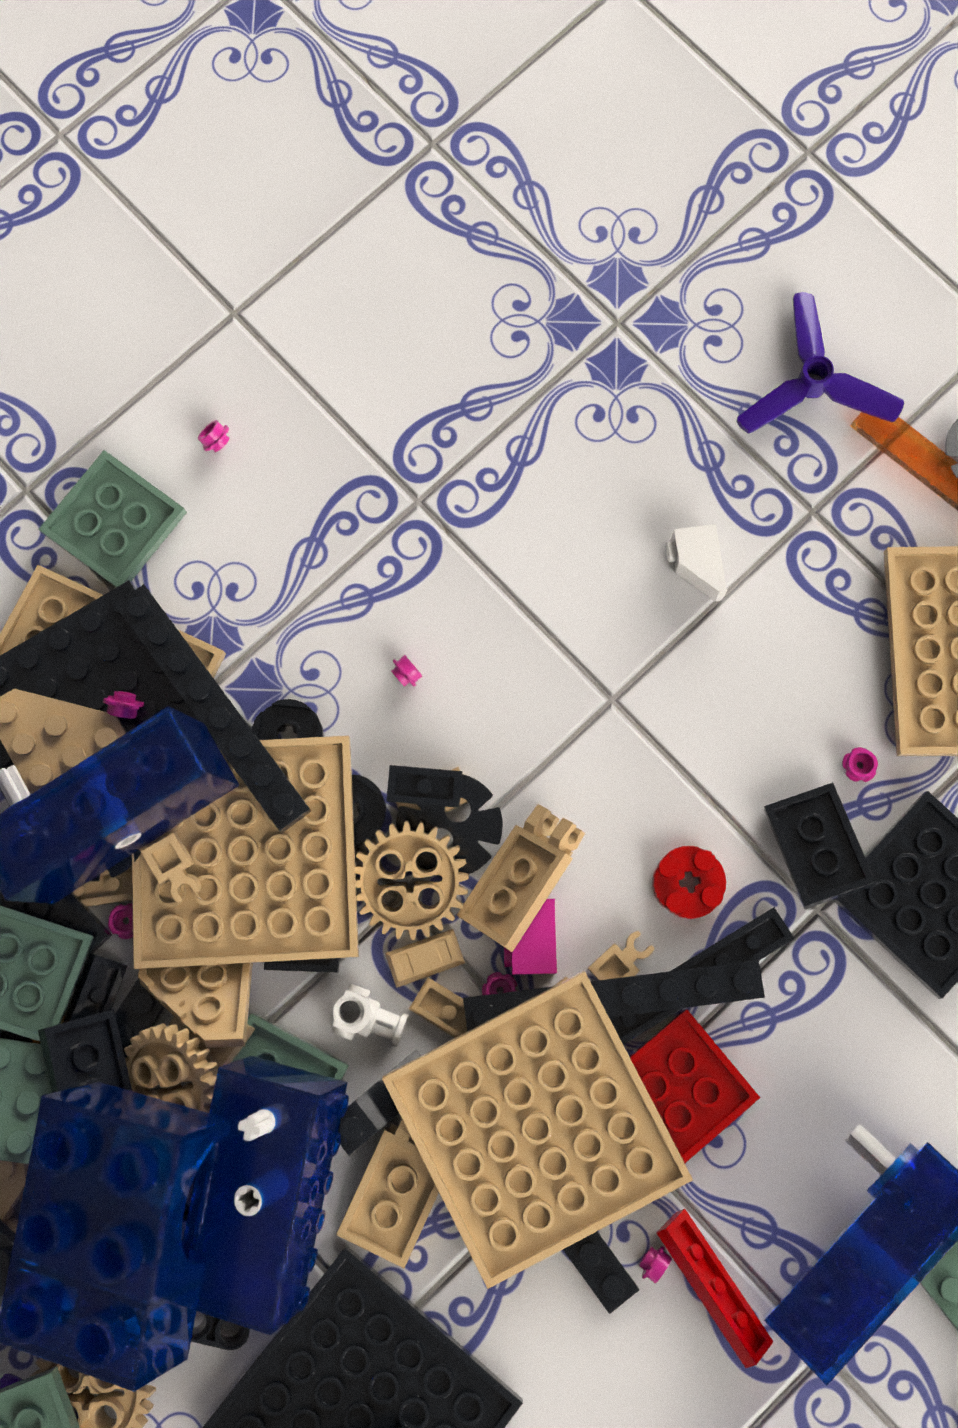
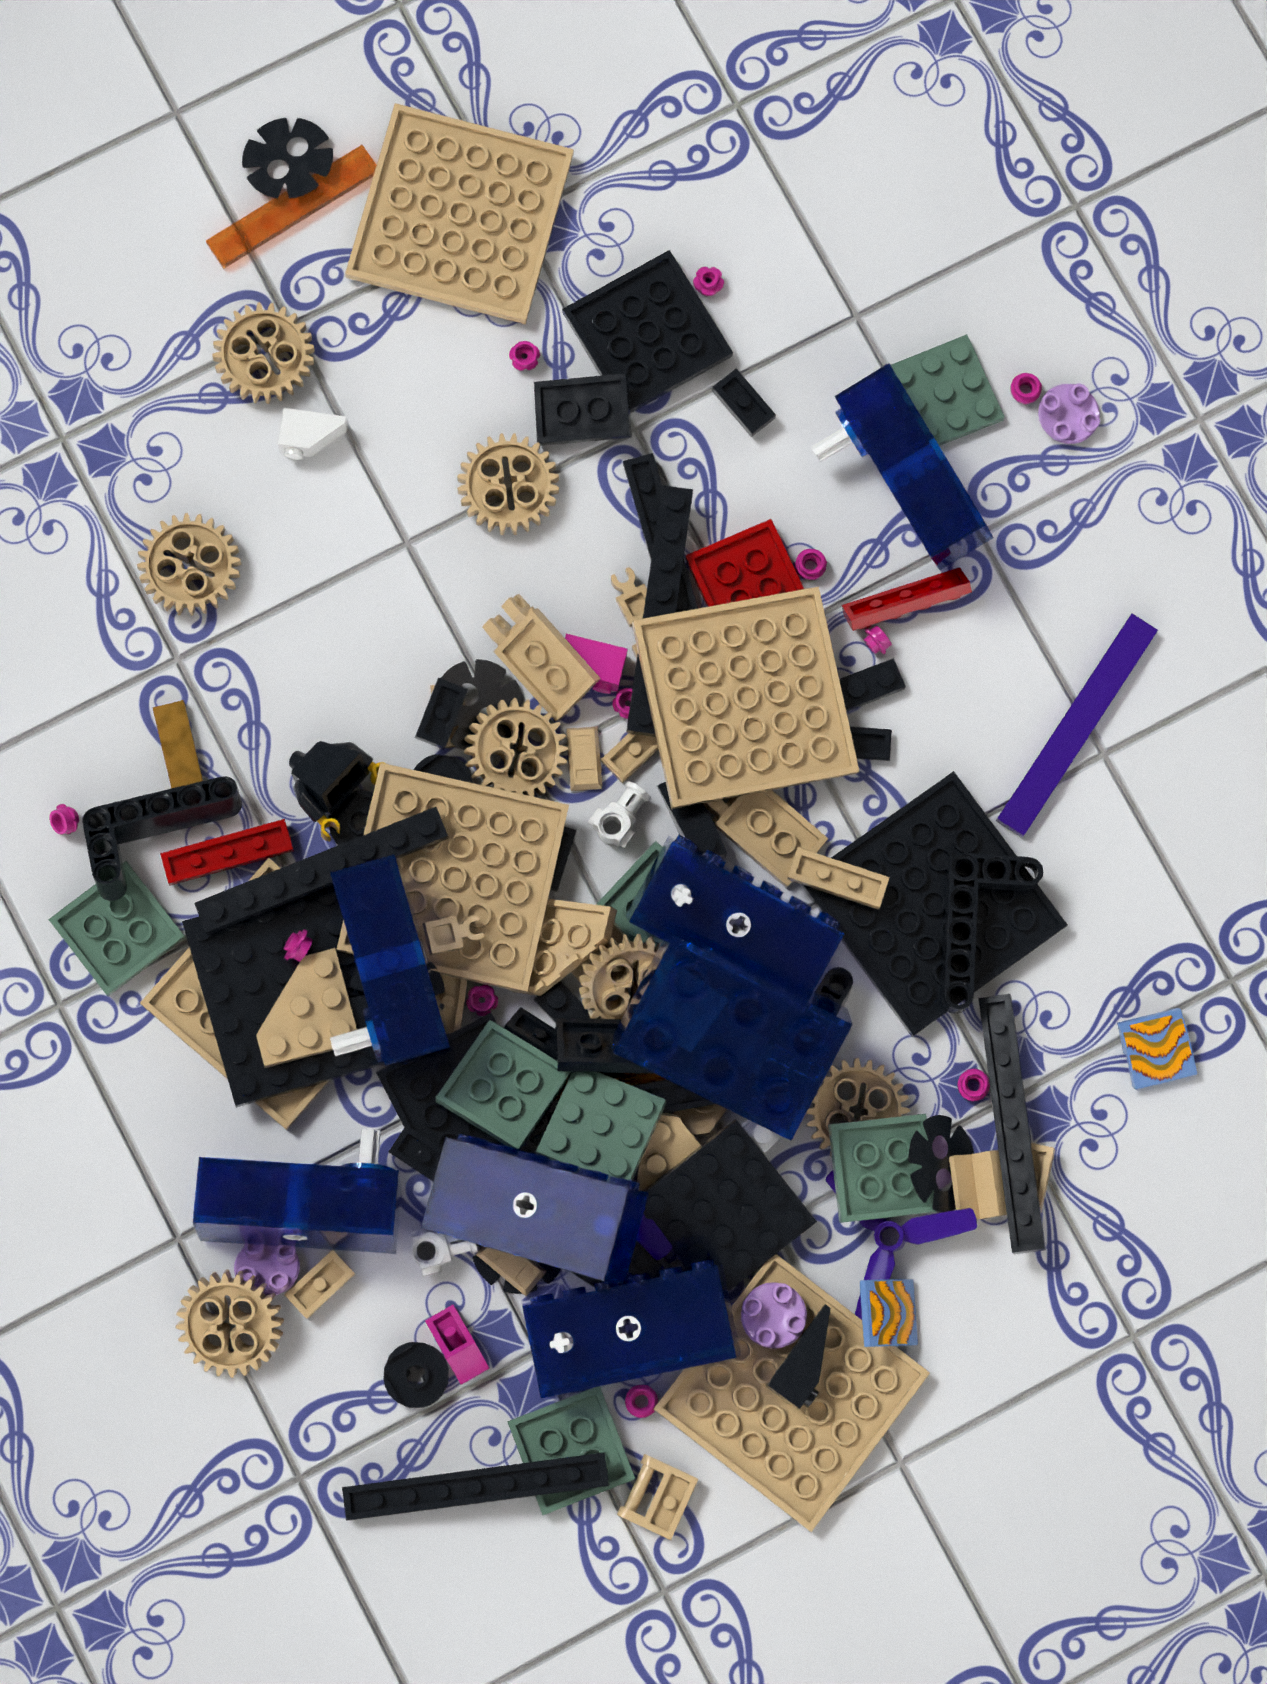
camera: 85 degrees left, 0 degrees up
(220, 607) = (226, 852): none -> red plate
(227, 515) = (149, 822): none -> black beam
(318, 528) = (177, 744): none -> pearl gold tile
(322, 686) = (328, 777): none -> black torso
(353, 1298) = (838, 878): none -> tan plate
(406, 671) = (333, 707): dark pink plate -> none
(488, 475) = (175, 588): none -> tan gear
(531, 1291) = (871, 743): none -> black tile
(700, 864) = (568, 535): red plate -> none
(721, 815) = (480, 487): none -> tan gear
(730, 1167) = (810, 555): none -> dark pink plate
(797, 508) = (287, 338): none -> tan gear
(837, 386) = (188, 266): dark purple piece -> none
(887, 1027) = (743, 402): none -> black plate

